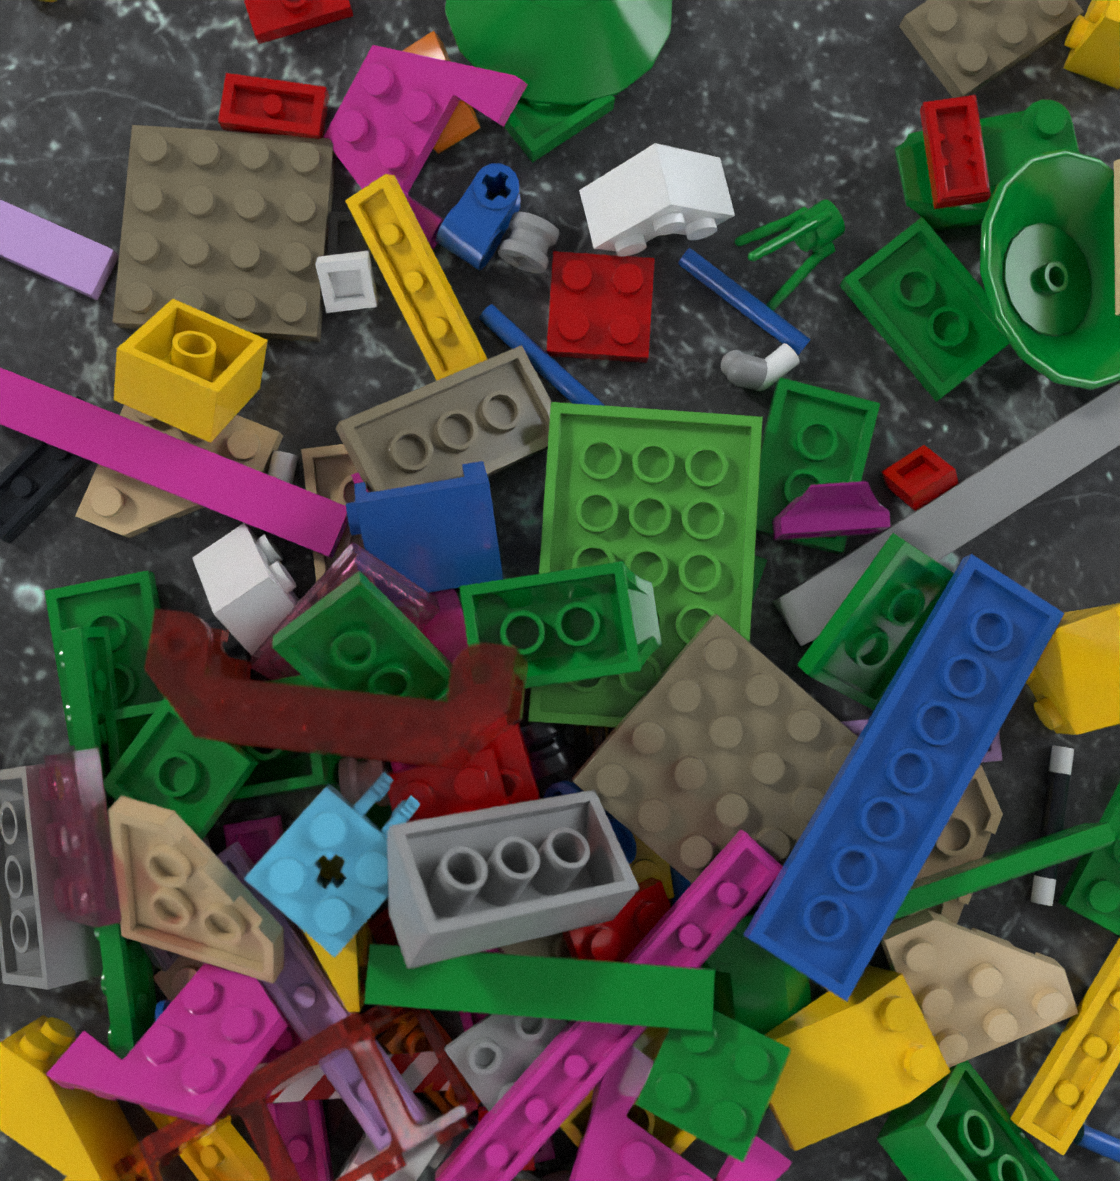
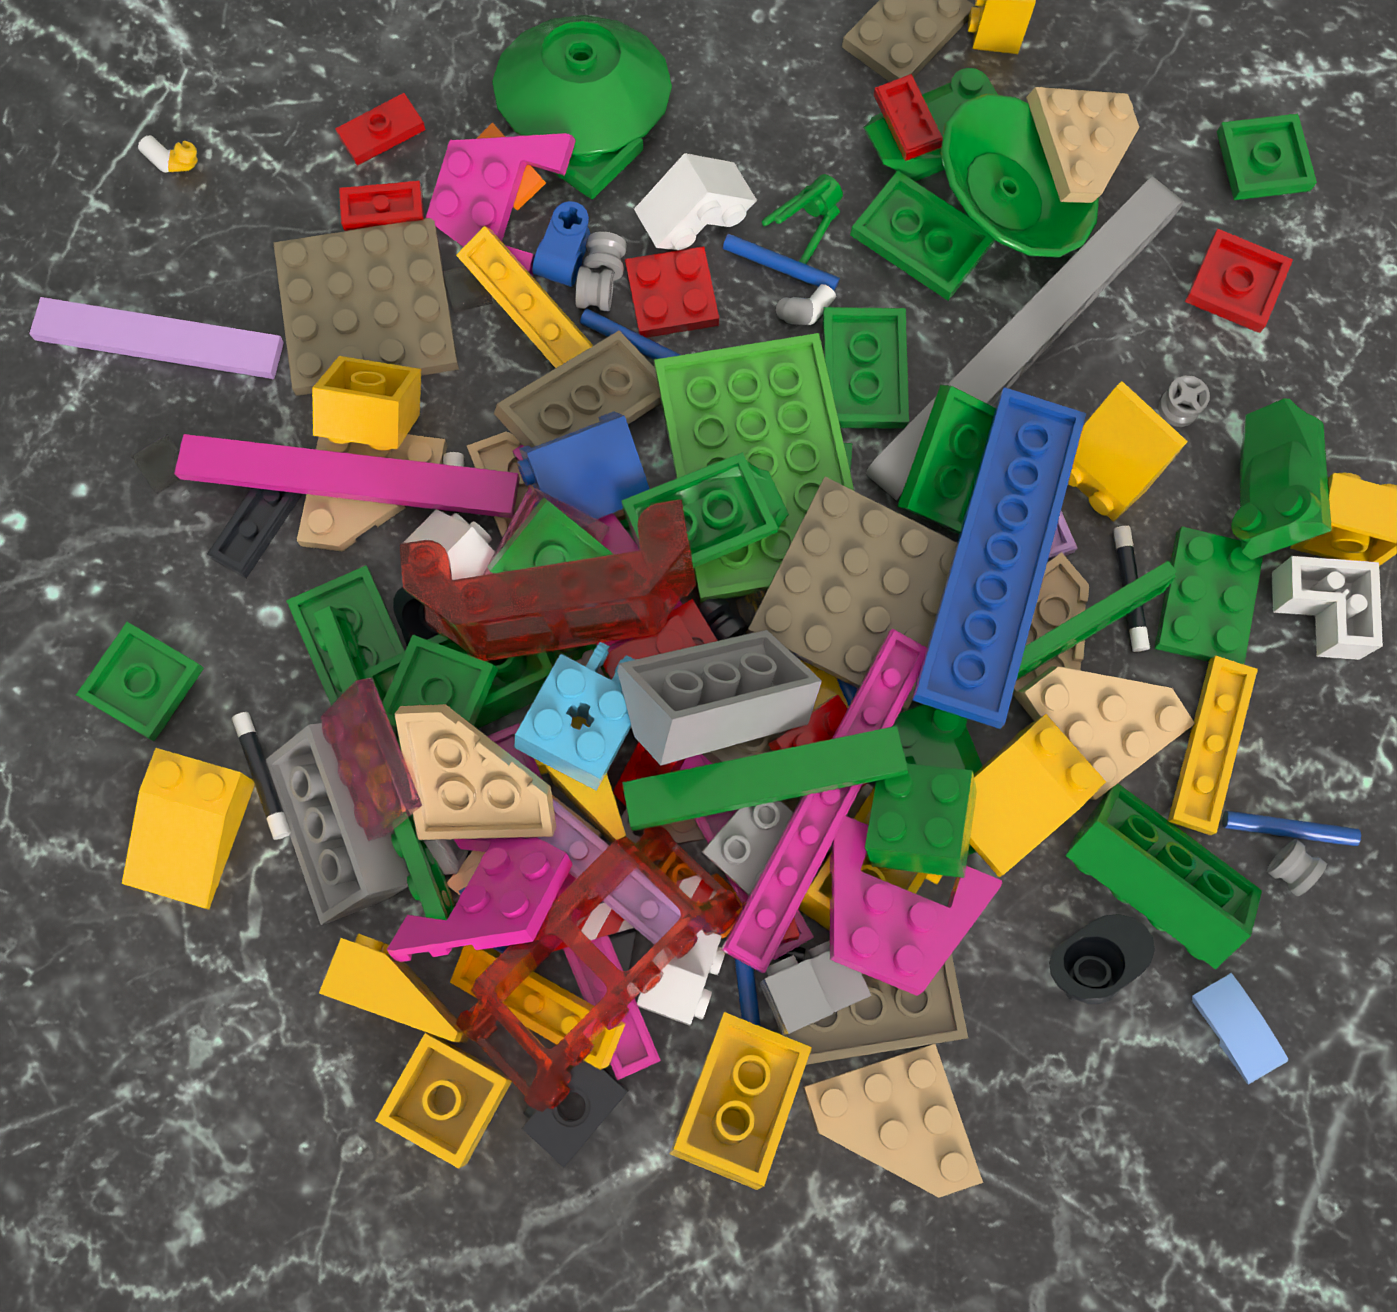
camera: 15 degrees left, 10 degrees down
(347, 281) = (471, 316): white plate -> none
(505, 282) = (594, 288): none -> light grey wheel
(832, 512) = (891, 387): magenta slope -> none
(920, 477) = (951, 355): red plate -> none

